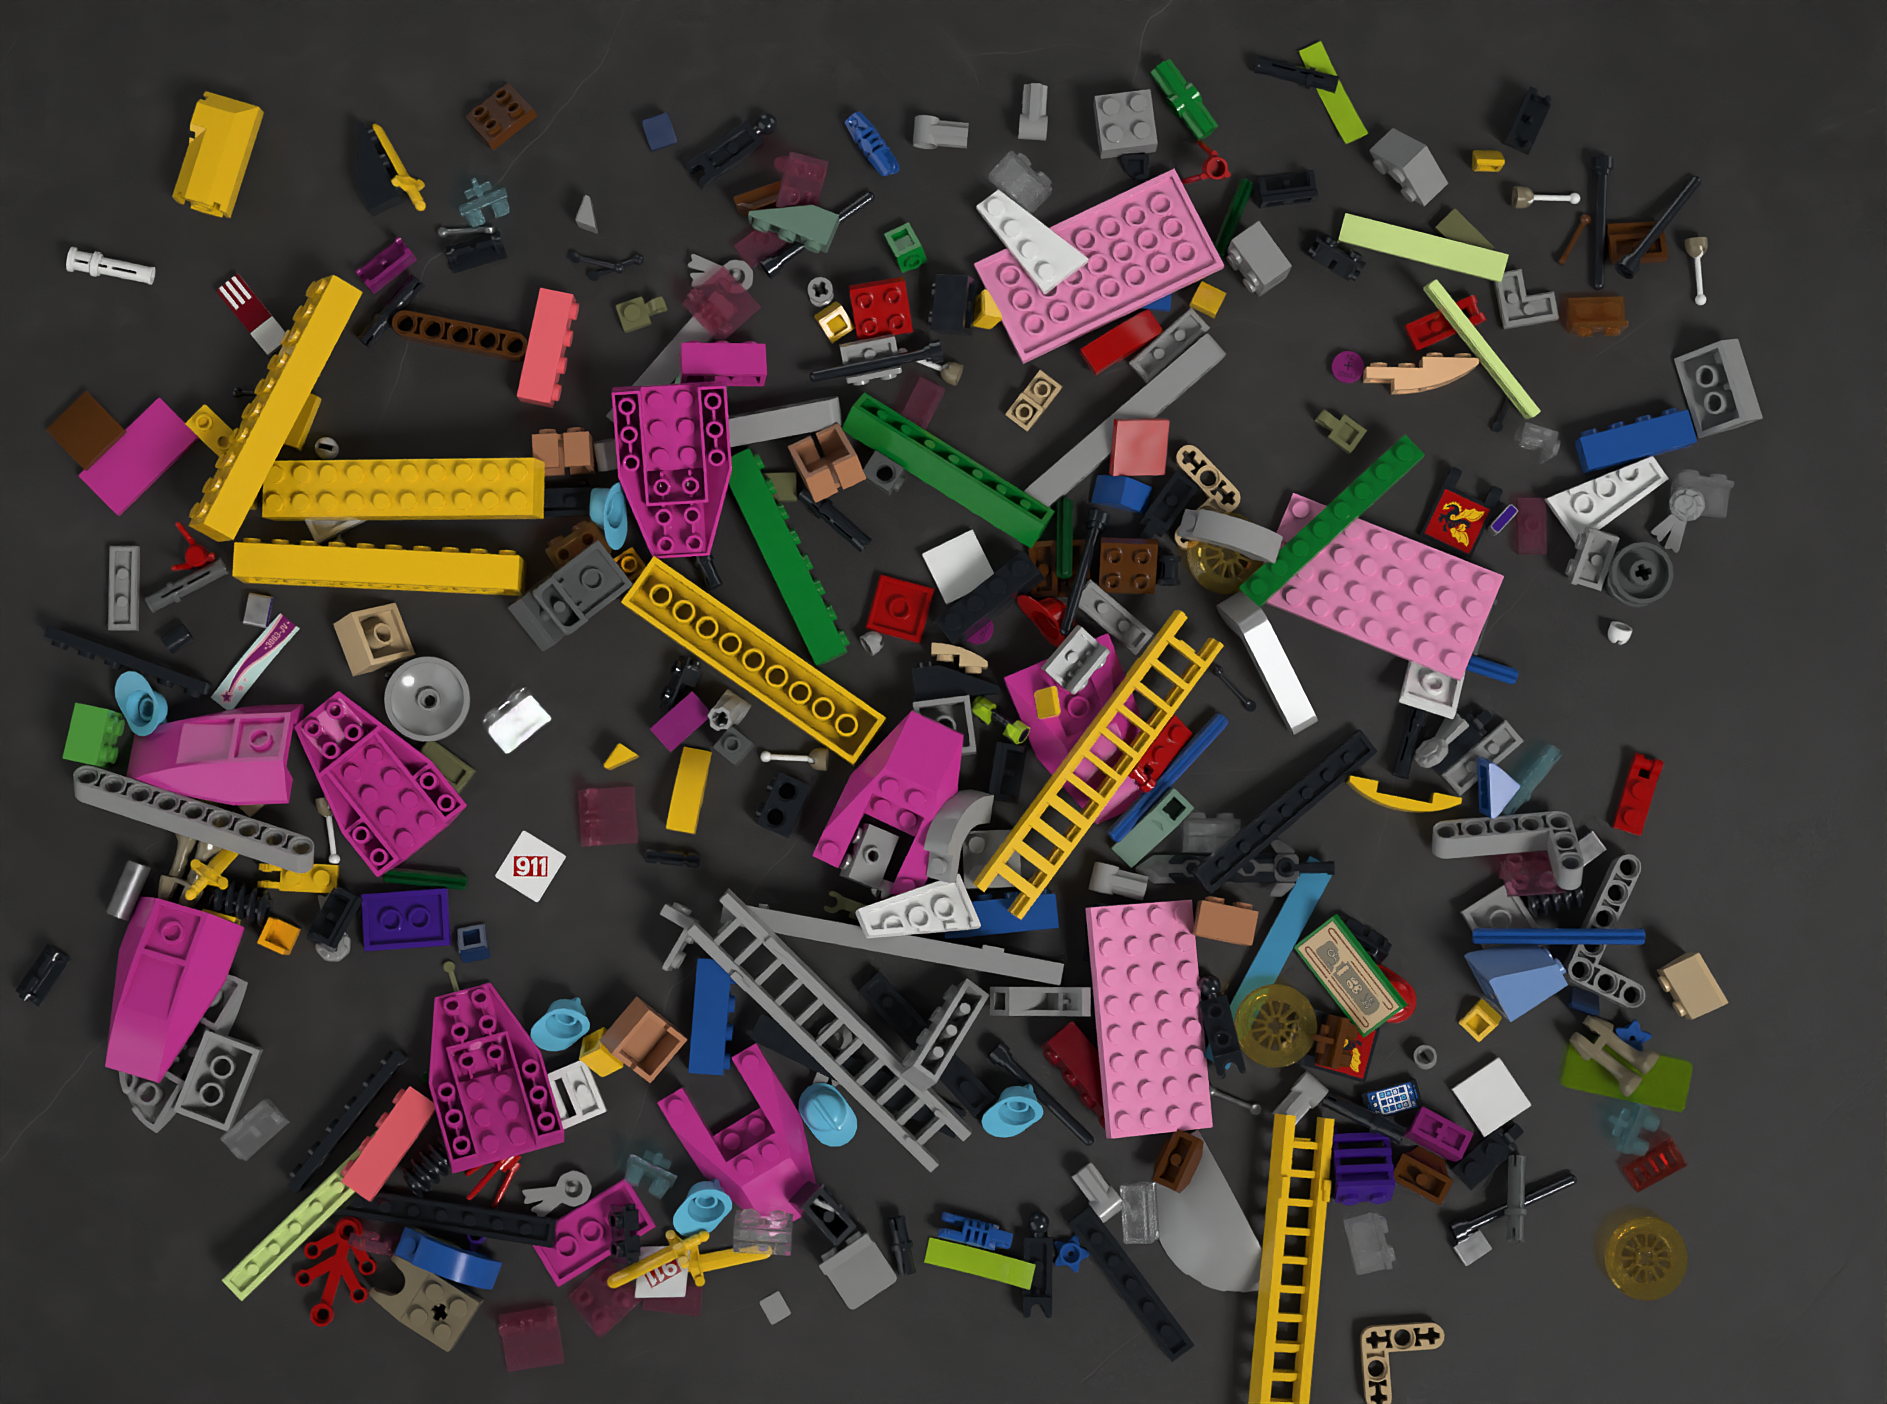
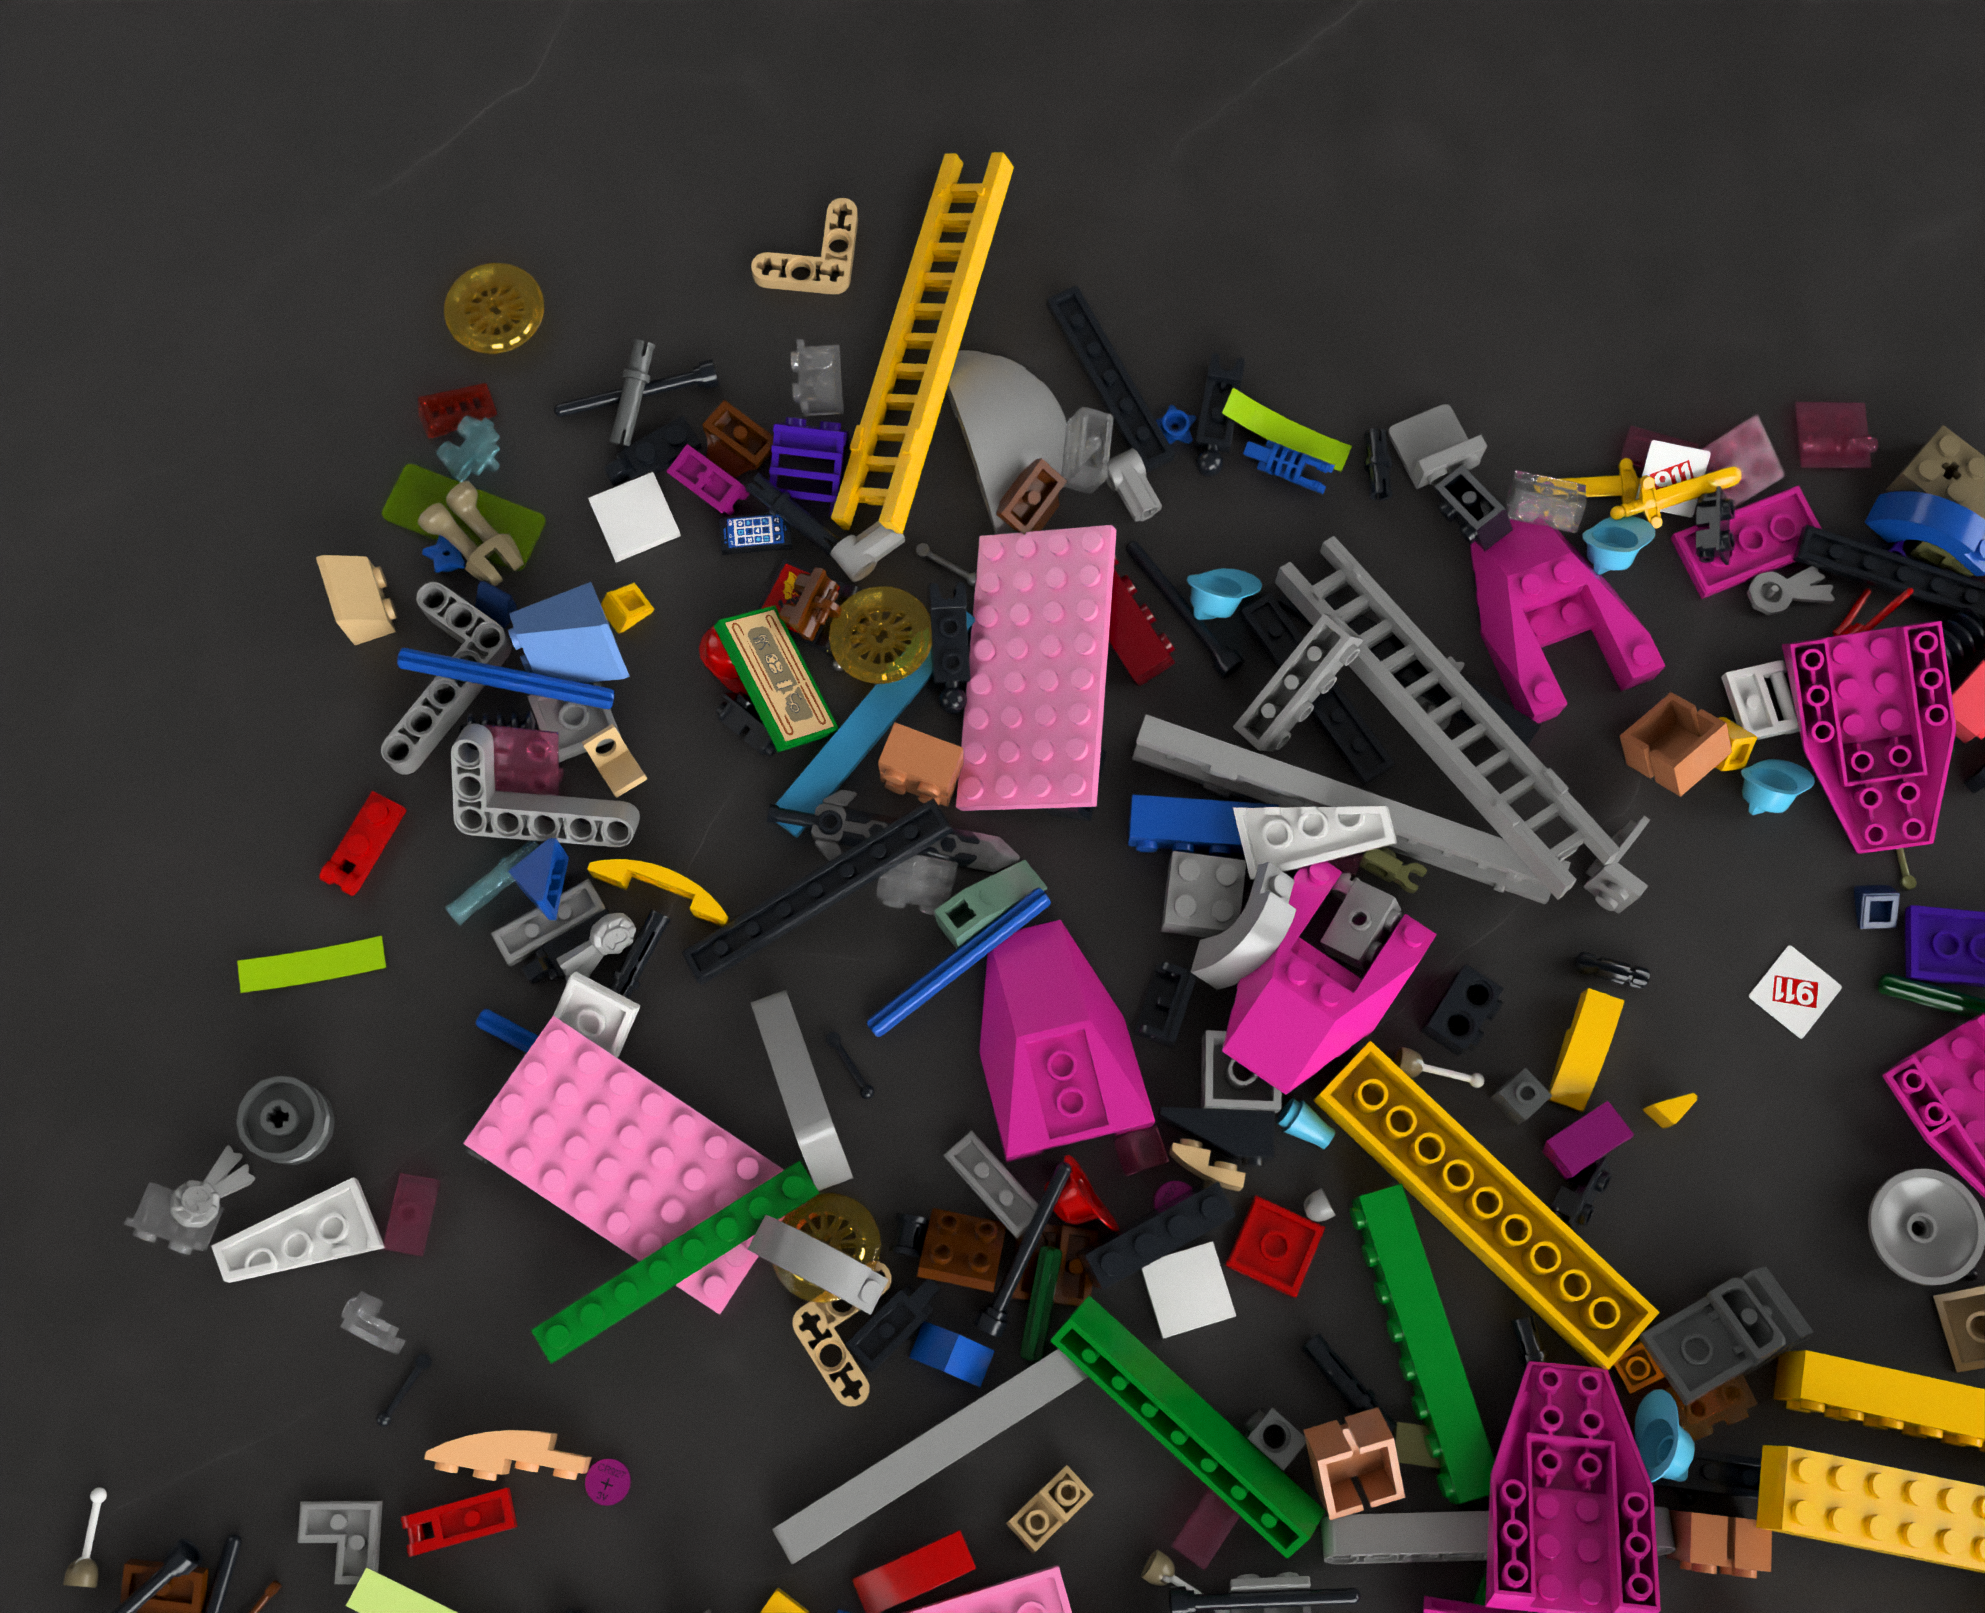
camera: 170 degrees left, 10 degrees down
(450, 766) = (1899, 1137): olive tile -> none
(515, 719) = (1806, 1182): clear bracket -> none
(607, 816) = (1691, 1036): clear pink hinge -> none
(662, 1179) = (1689, 601): clear light blue hips -> none
(711, 1019) = (1585, 751): blue brick -> none
(728, 711) = (1523, 1144): light grey piece -> none
(775, 1307) = (1536, 424): light grey sticker -> none
(827, 1114) = (1450, 627): medium azure piece -> none
(890, 700) = (1302, 1122): none -> medium azure cone
(986, 712) = (1182, 1086): lime piece -> none
(1007, 661) = (1140, 1150): none -> clear pink slope
(1040, 1001) = (1198, 713): light grey arch -> none
(1047, 702) = (1103, 1075): yellow slope -> none
(1075, 660) = (1057, 1123): light grey bracket -> none
(1110, 880) = (1055, 847): light grey piece -> none
(1115, 776) = (1030, 966): yellow ladder -> none
(1139, 446) = (918, 1413): tile -> none
(1160, 753) = (966, 994): red plate -> none
(1169, 345) = (848, 1557): light grey tile -> none
(1344, 432) = (632, 1388): olive plate -> none
(1430, 1054) = (696, 574): light grey hinge -> none
(1457, 518) = (506, 1243): flag -> none
(1459, 888) = (617, 765): none -> tan bracket
(1472, 1248) = (695, 351): flat silver piece -> none
(1481, 349) = (418, 1473): yellowish green tile -> none
(1502, 520) = (447, 1228): dark purple piece -> none
(1590, 847) = (438, 788): flat silver piece -> none
(1592, 558) = (340, 1154): light grey bracket -> none
(1596, 315) = (248, 1497): clear orange bracket -> none
(1619, 632) = (331, 1052): white hinge -> none
(1635, 441) = (240, 1305): blue brick -> none
(1651, 695) = (311, 965): none -> lime sticker
(1718, 388) = (109, 1361): light grey slope -> none

